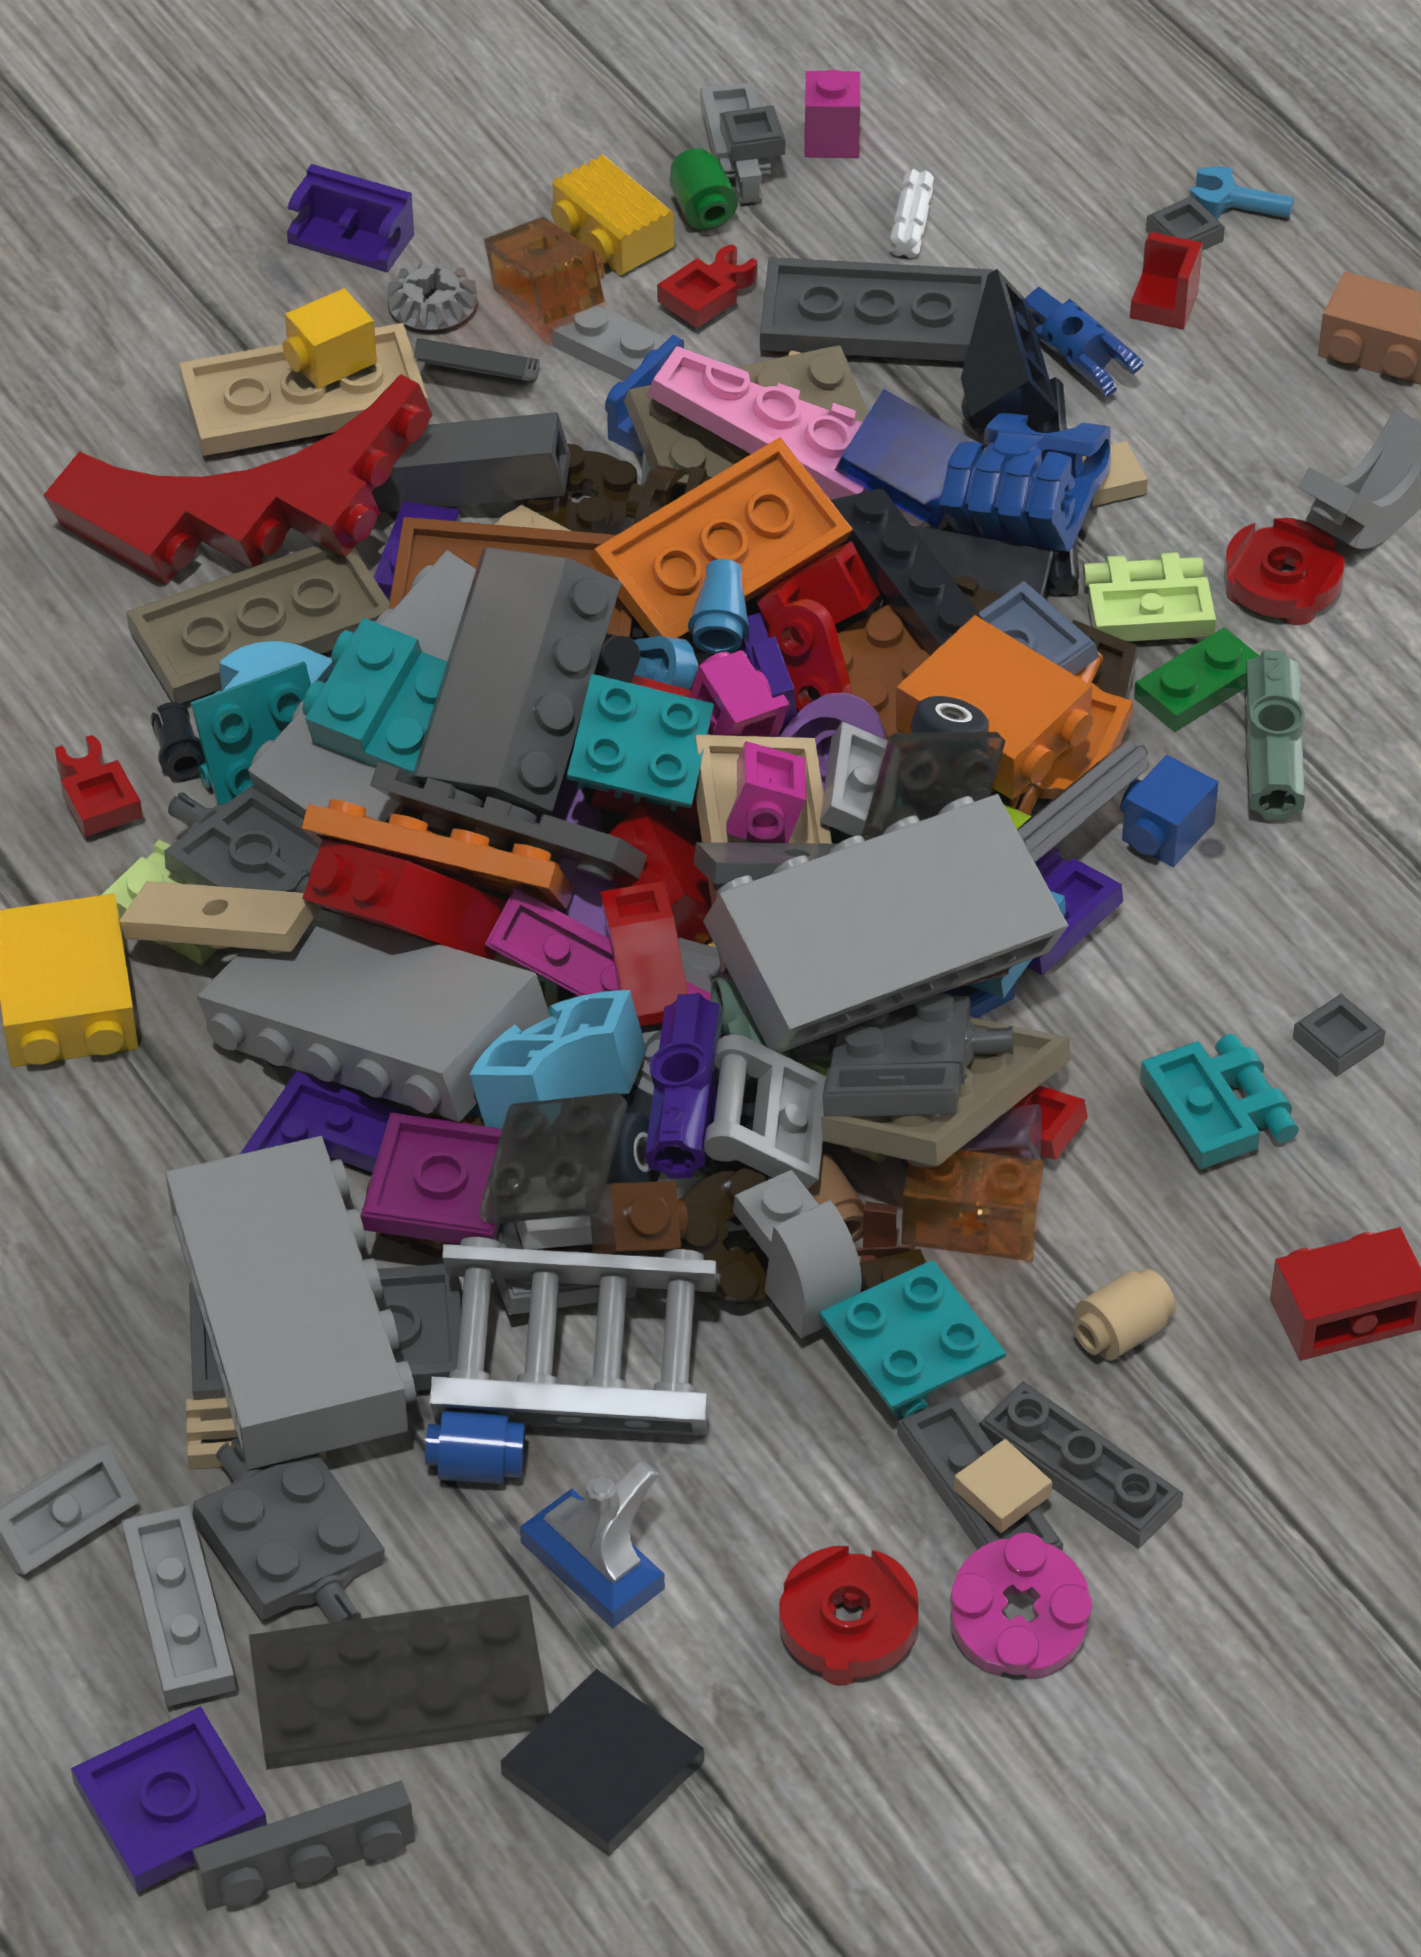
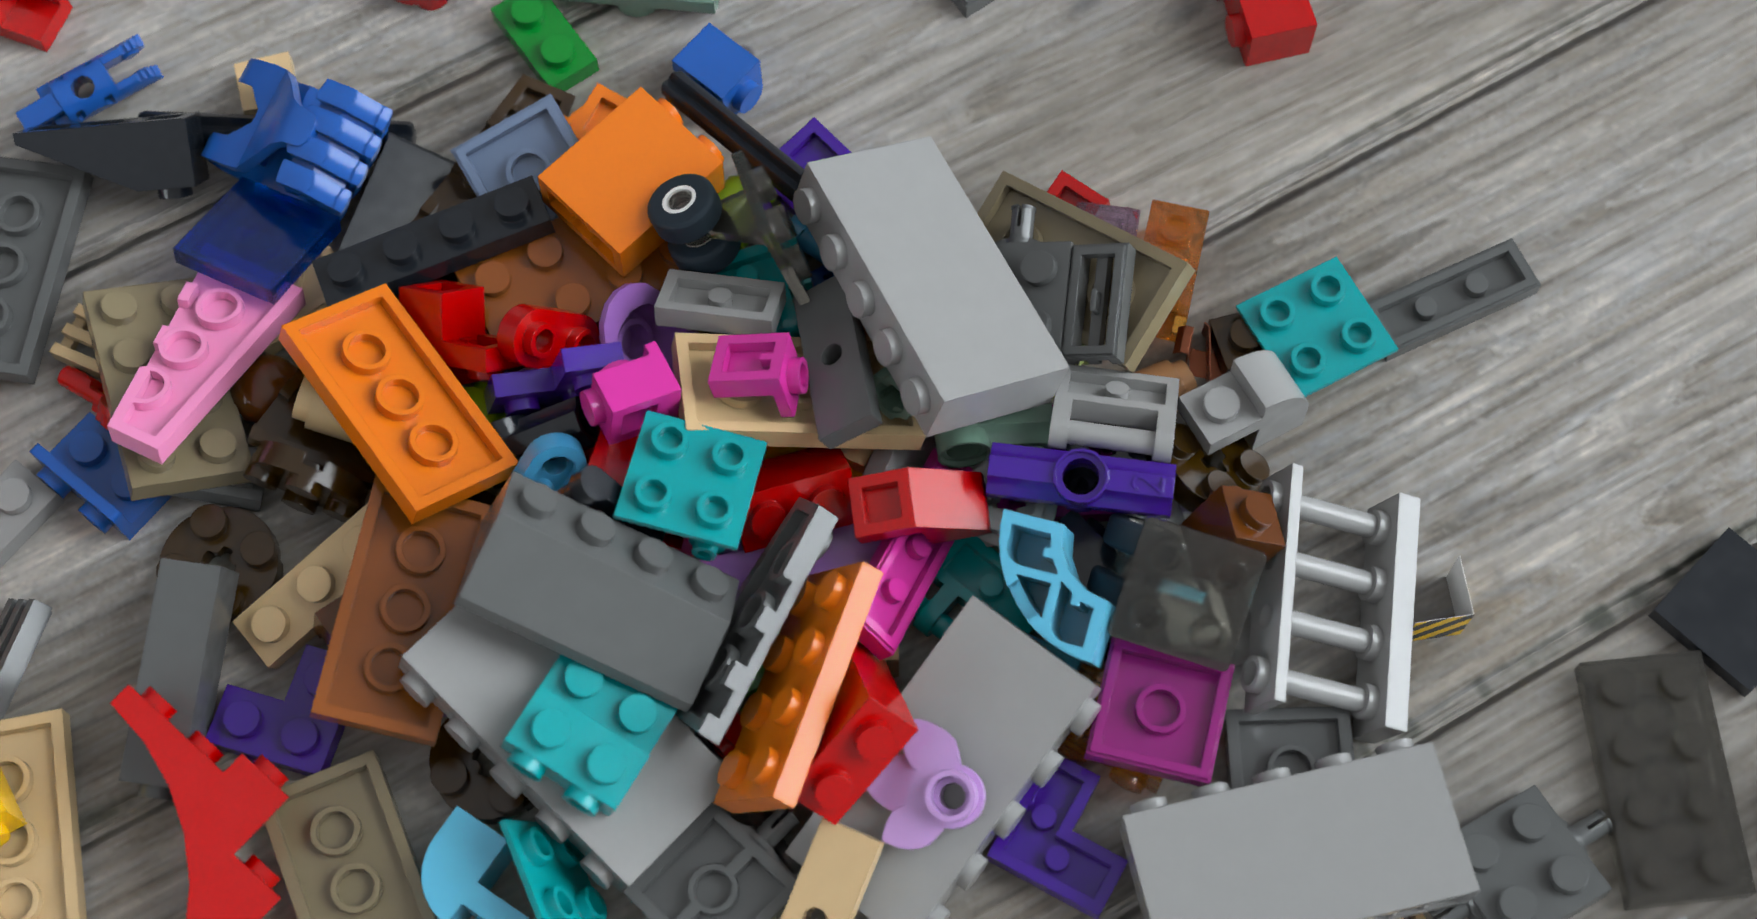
camera: 85 degrees left, 20 degrees up
(343, 970) = (915, 787): none -> lavender plate
(476, 1447) = (1432, 699): blue brick -> none
(579, 1470) = (1461, 605): none -> sticker
(591, 1545) = (1530, 608): piece -> none
(720, 611) = (493, 404): dark azure cone -> none
(848, 1648) = (1576, 436): red plate -> none
(1002, 1485) = (1469, 272): tan tile -> none
(1017, 1646) = (1602, 253): dark pink plate -> none
(1084, 1465) = (1404, 239): dark grey tile -> none
(1123, 1313) = (1282, 167): tan brick -> none
(1150, 598) = (459, 66): yellowish green plate -> none
(1204, 1109) = (1053, 87): teal plate -> none

